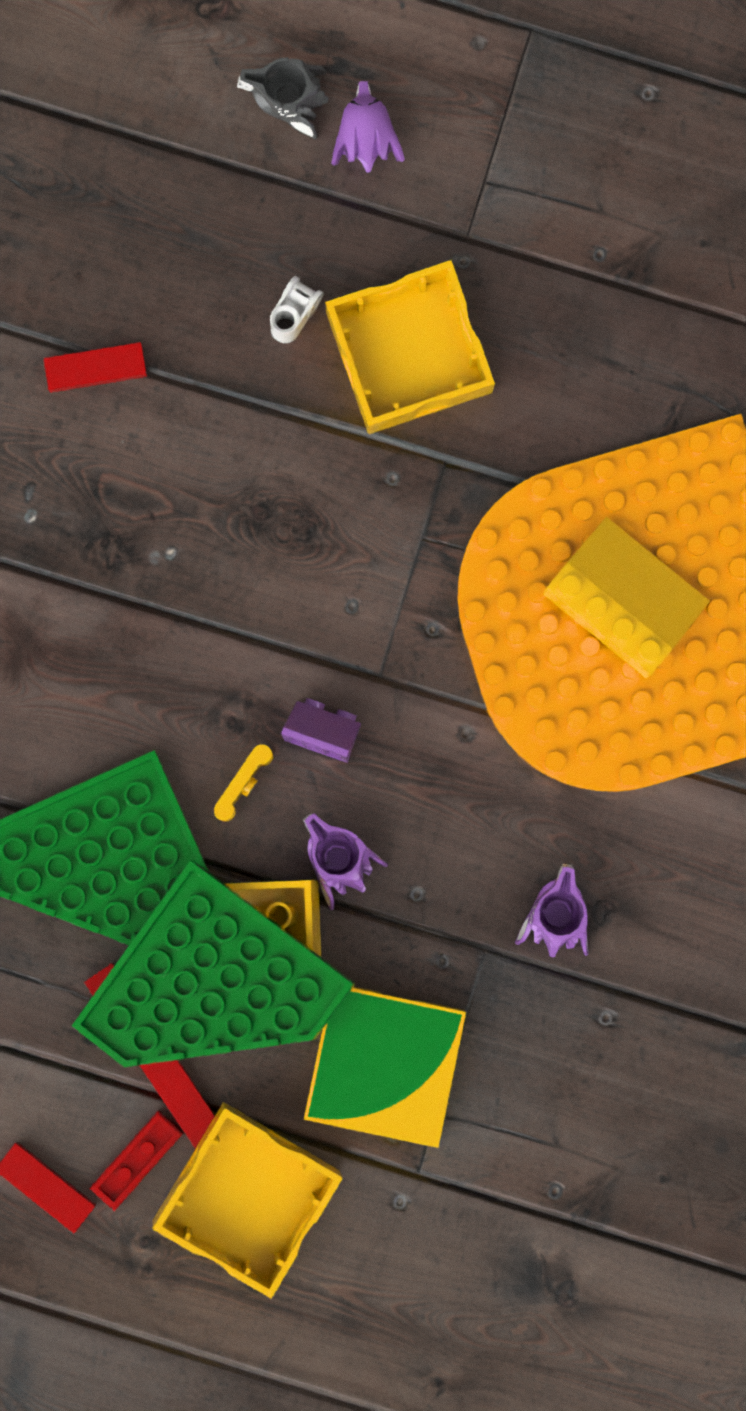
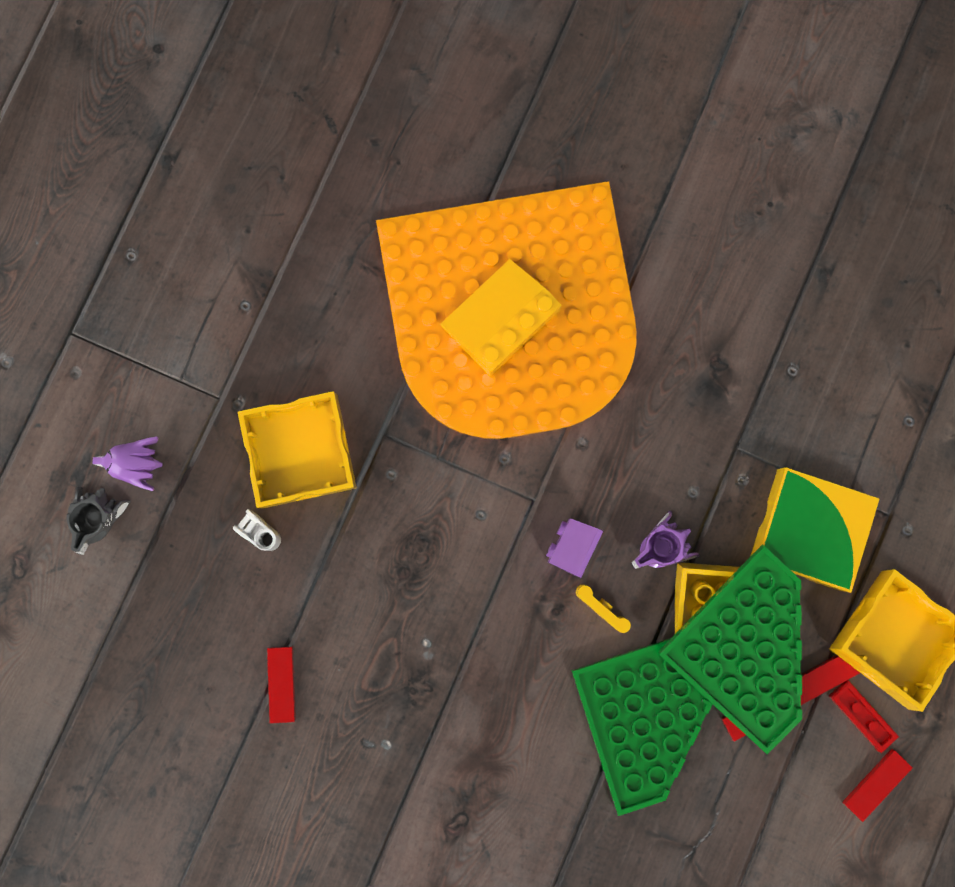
camera: 85 degrees left, 0 degrees up
(558, 914) = (720, 394): medium lavender piece -> none

